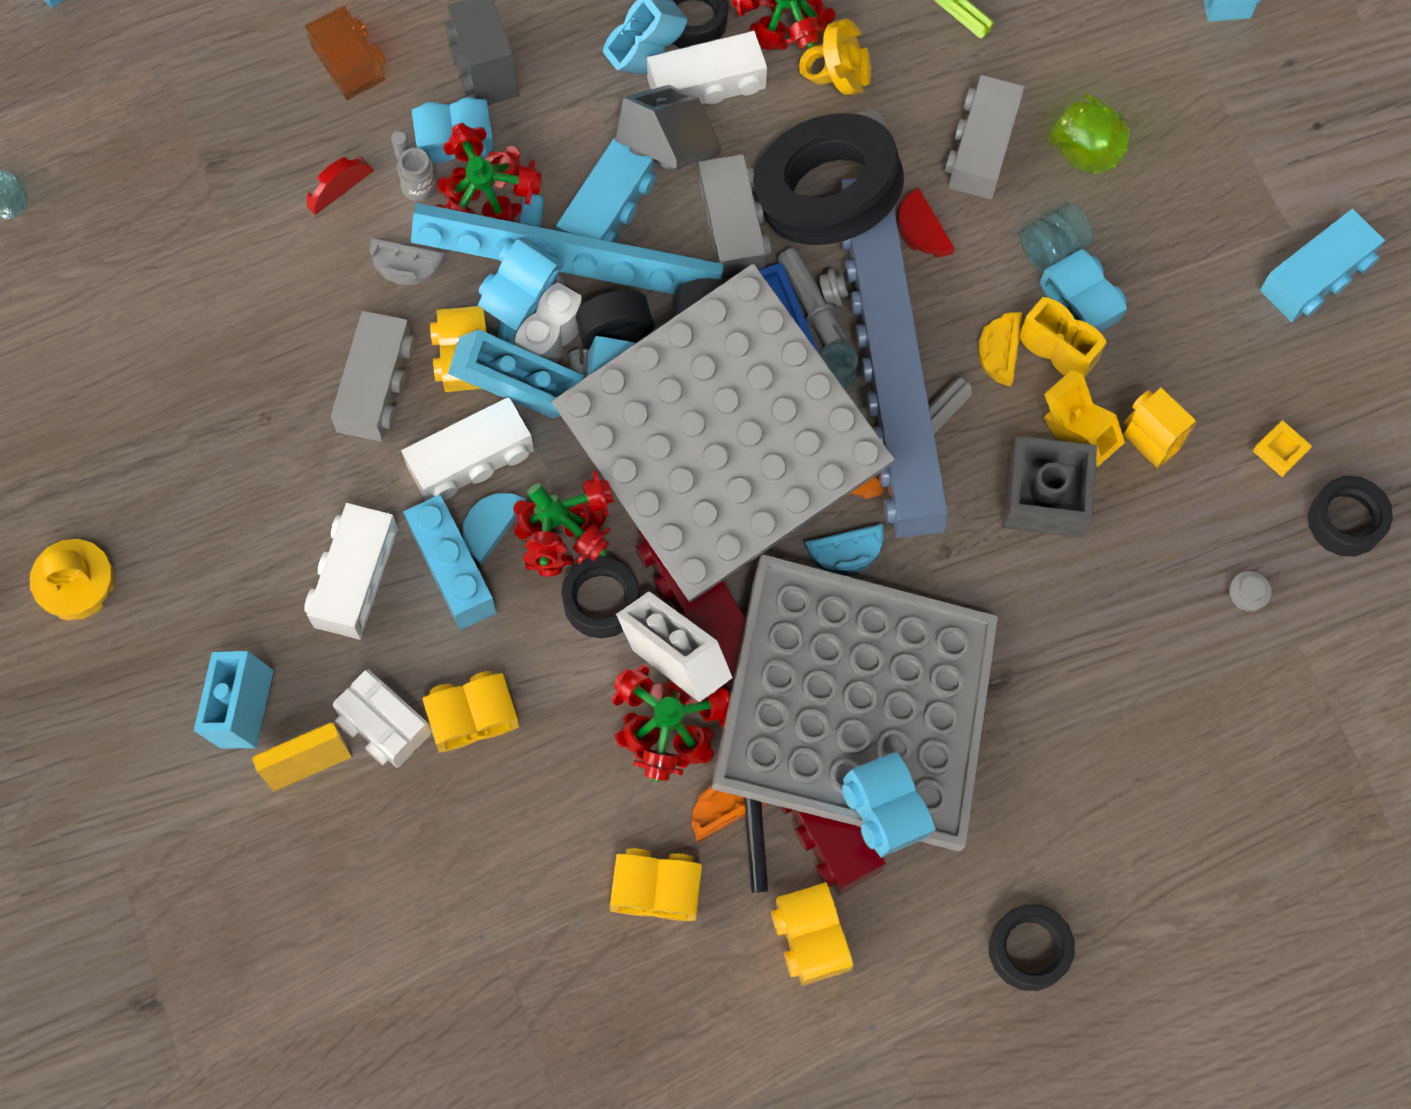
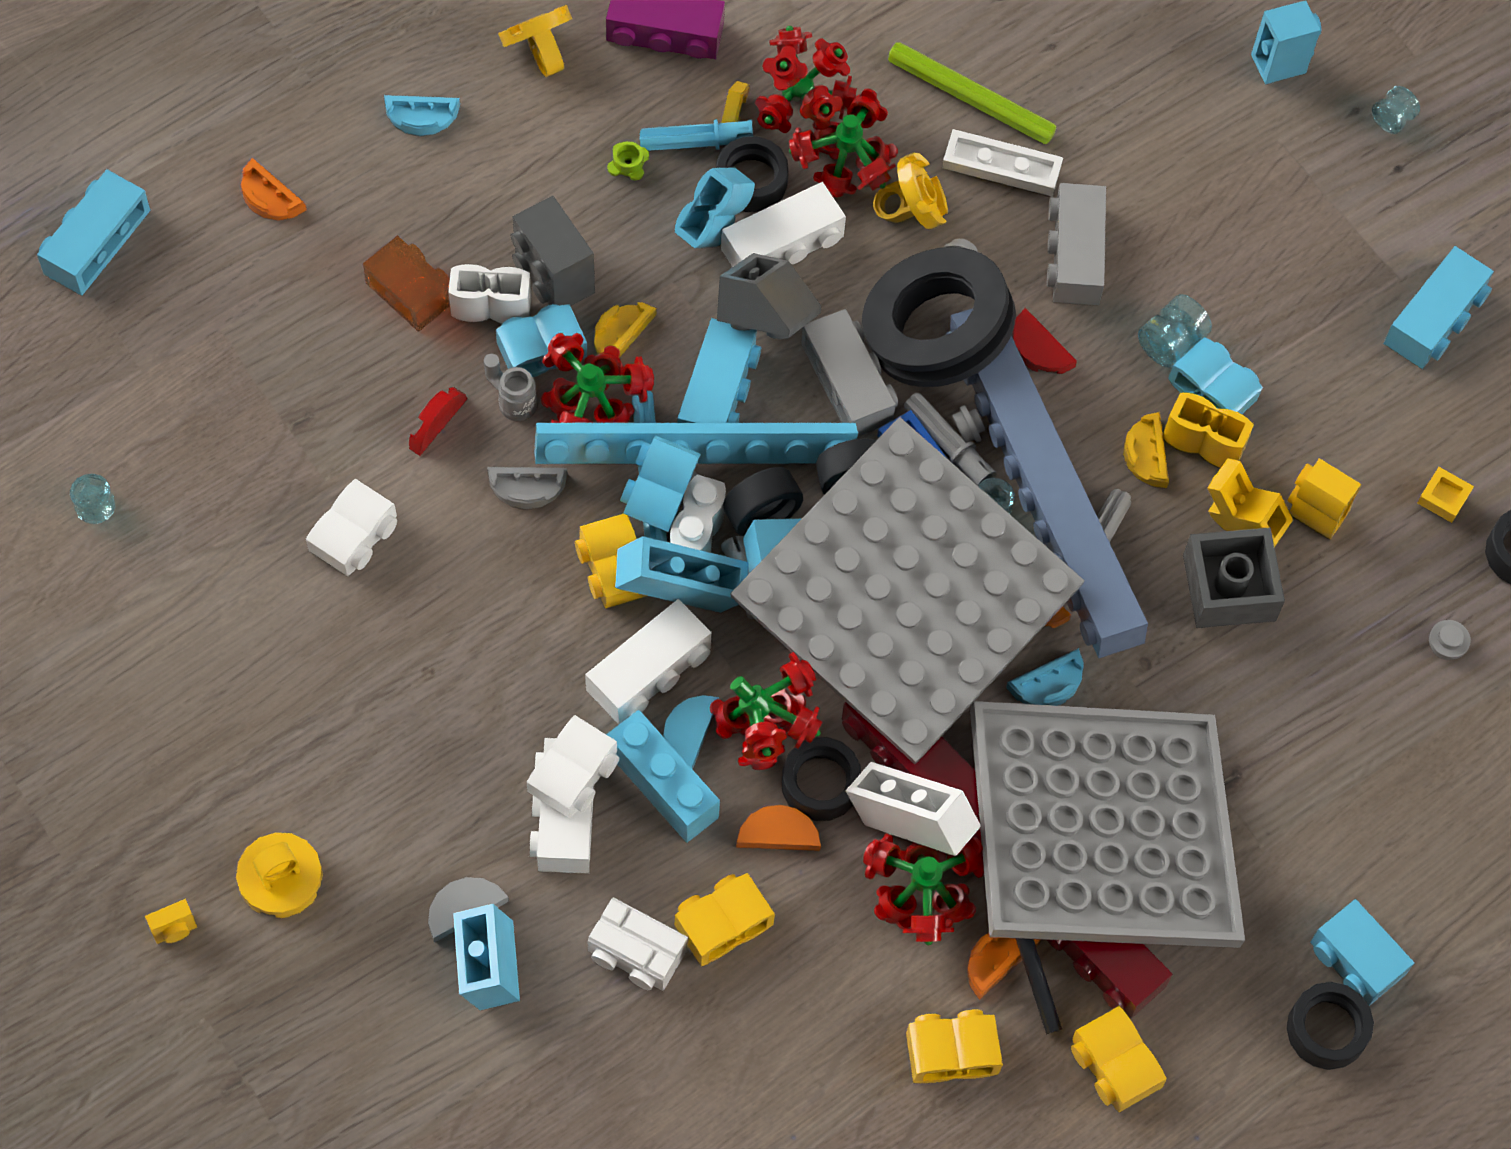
camera: 15 degrees left, 5 degrees down
(229, 268) = (352, 527): none -> white brick
(232, 636) = (458, 897): none -> light grey tile
(301, 756) = (573, 996): yellow tile -> none
(360, 536) = (572, 767): none -> white brick
(373, 376) = (532, 607): light grey brick -> none
(413, 75) = (487, 294): none -> white brick
(534, 131) = (622, 326): none -> yellow tile
(548, 636) = (779, 829): none -> orange tile
(888, 804) = (1164, 913): medium azure brick -> none
(933, 47) = (1002, 162): none -> white plate
(1081, 882) = (1361, 952): none -> medium azure brick
(1091, 136) = (1185, 223): clear neon green hair -> none
(1329, 67) = (1396, 109): none -> clear light blue wheel

